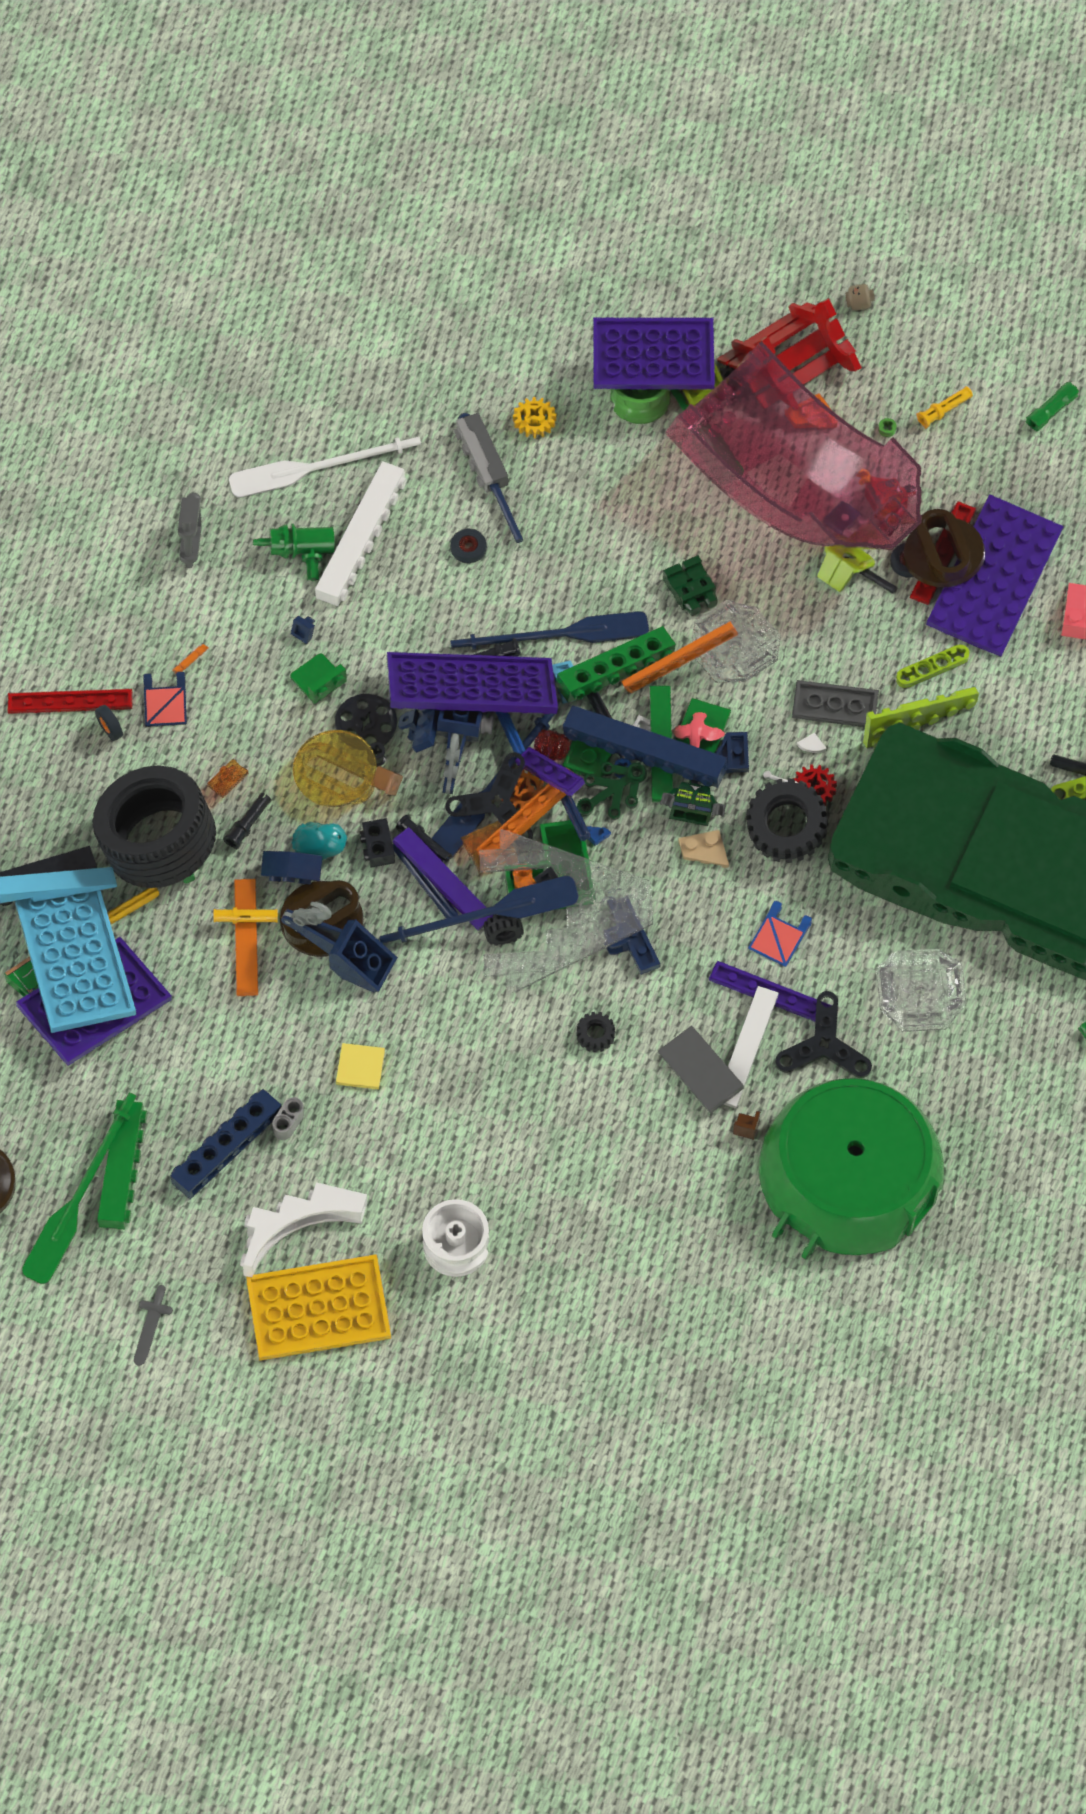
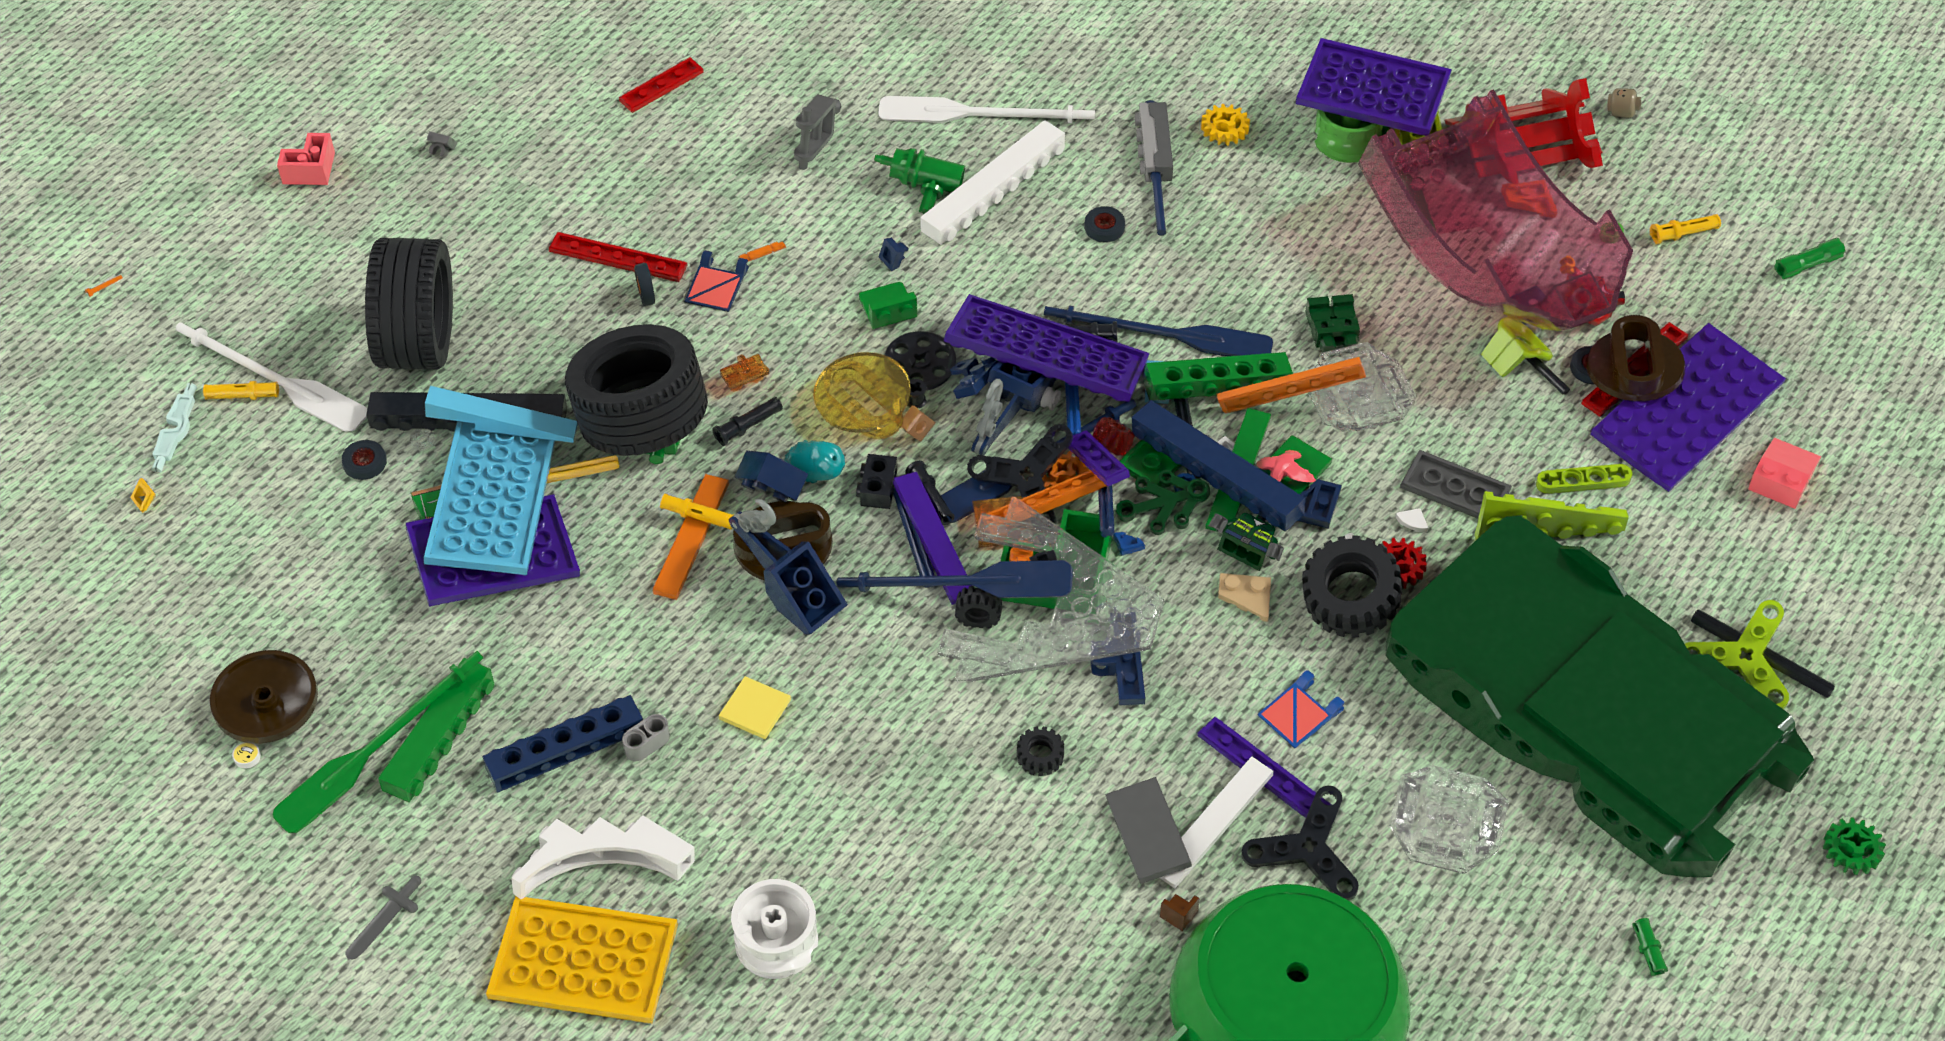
camera: 20 degrees right, 10 degrees down
(30, 520) = (661, 84): none -> red tile

